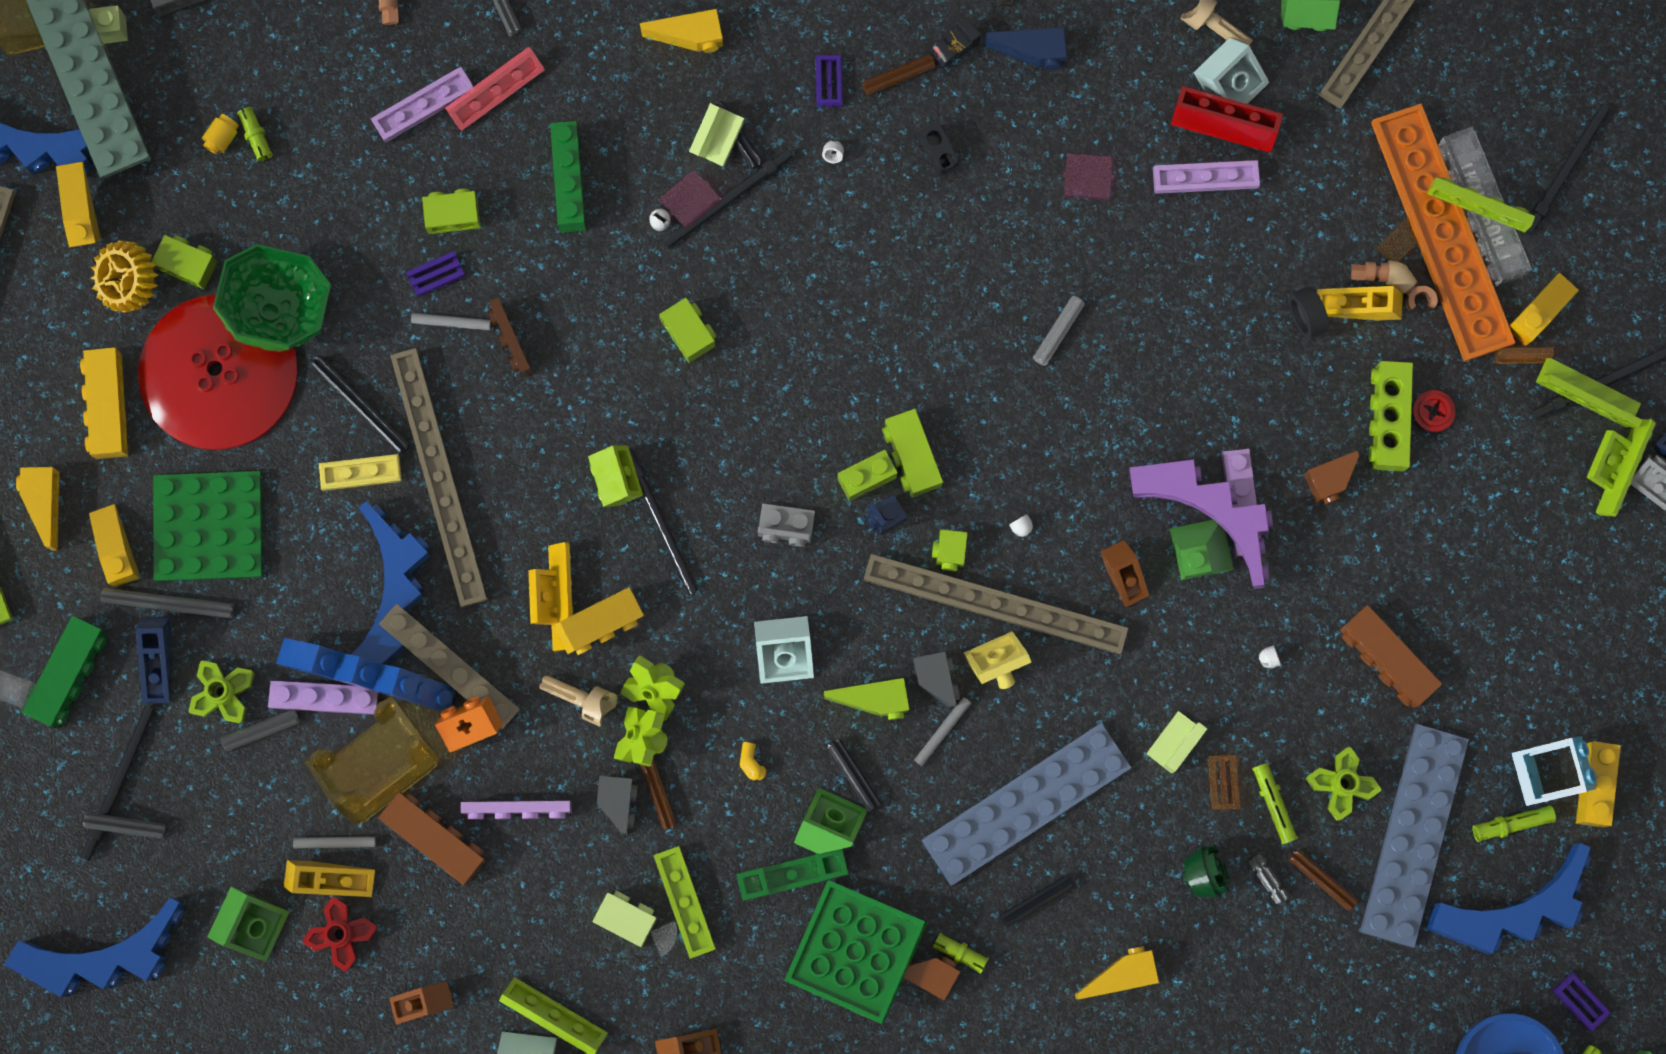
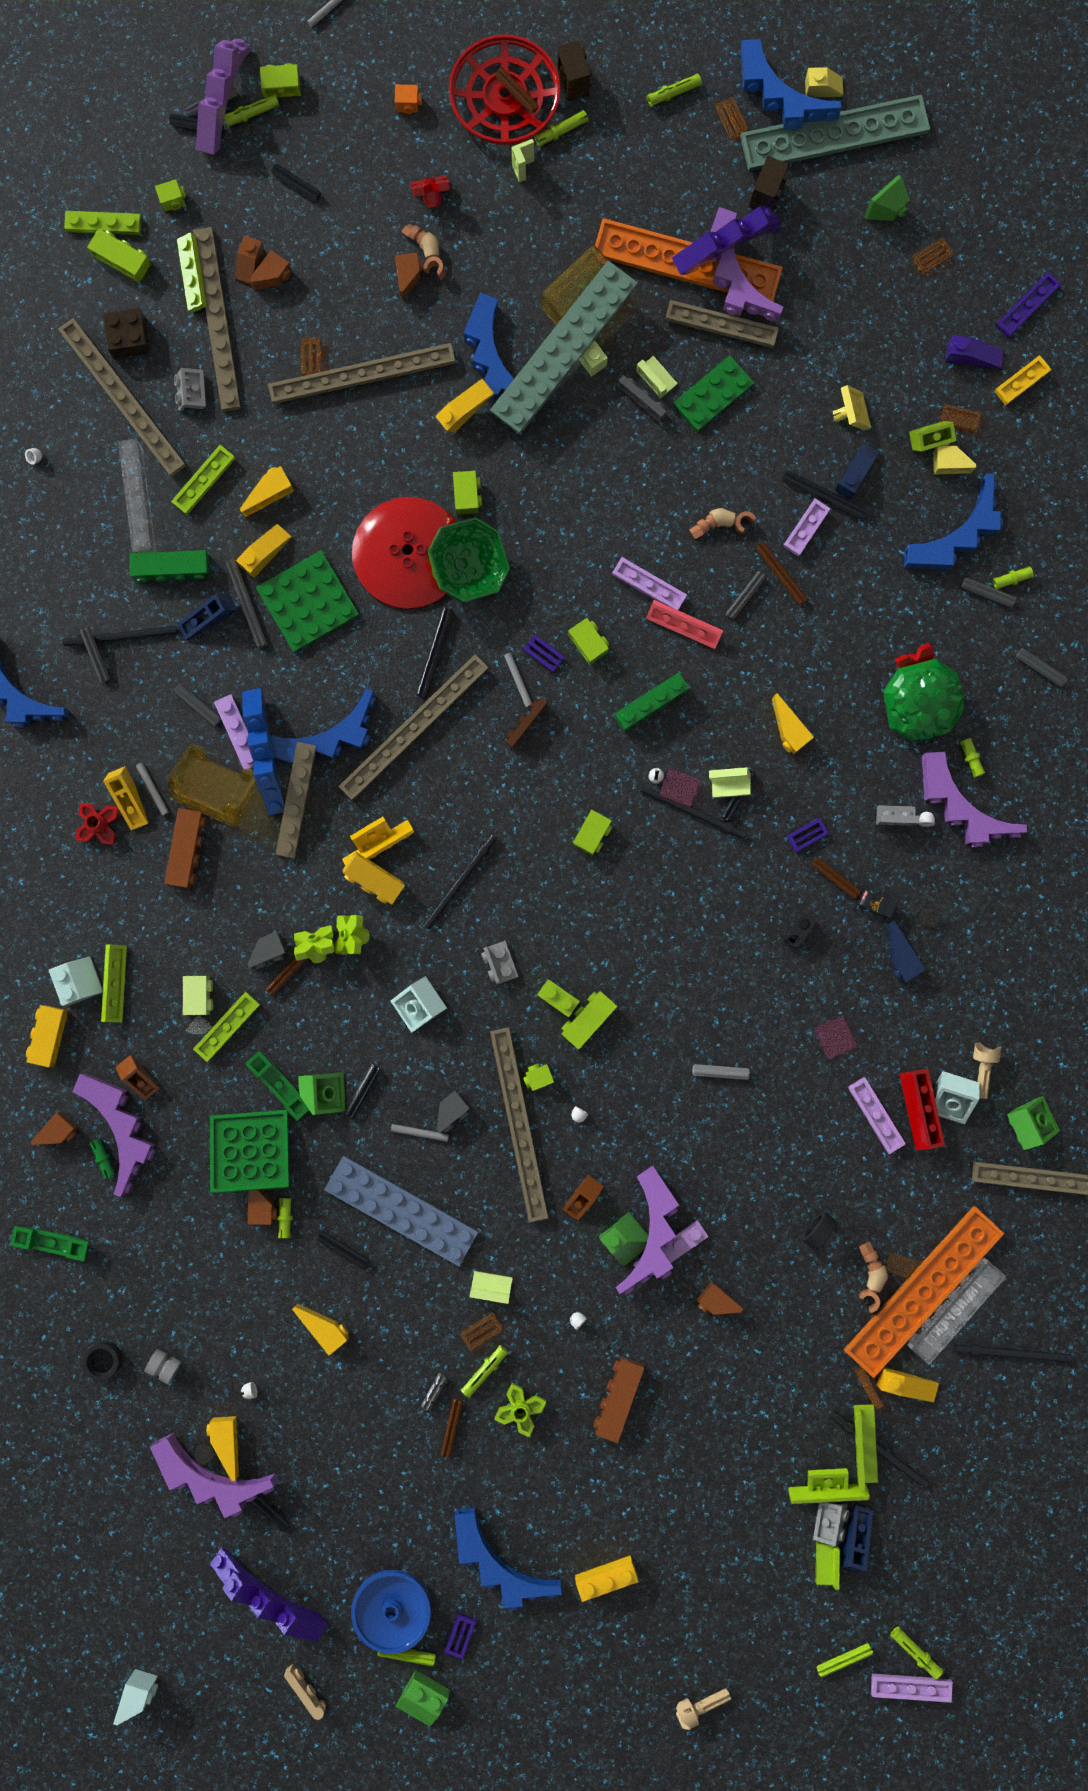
camera: 65 degrees right, 5 degrees up
(105, 403) = (350, 494): yellow brick -> none
(124, 276) = (435, 460): yellow gear -> none
(220, 134) = (560, 468): yellow brick -> none
(228, 703) = (200, 663): lime plant -> none
(248, 924) = (73, 764): bright green slope -> none
(254, 133) = (572, 489): lime pin -> none
(360, 472) = (391, 676): light yellow tile -> none
(421, 1002) = (81, 897): dark orange slope -> none
(468, 723) = (266, 832): orange brick -> none
(528, 809) = (233, 896): lavender plate -> none
(594, 704) = (320, 903): tan piece -> none
(615, 475) = (472, 838): lime brick -> none
(749, 764) = (334, 1020): yellow arm -> none
(833, 157) = (760, 863): white hinge -> none
(878, 698) = (418, 1081): lime slope -> none
(885, 514) = (539, 1023): dark blue bracket -> none
(998, 659) = (482, 1144): light yellow tile -> none
(1206, 872) = (415, 1350): dark green cone -> none
(1363, 302) = (846, 1261): yellow slope -> none
(1400, 377) = (791, 1322): lime brick -> none
(1414, 836) = (511, 1472): sand blue plate -> none
(1445, 408) = (805, 1352): red gear -> none
(1488, 207) = (956, 1318): lime plate -> none
(1518, 822) = (547, 1529): lime pin -> none
(1530, 778) = (587, 1531): medium azure window -> none

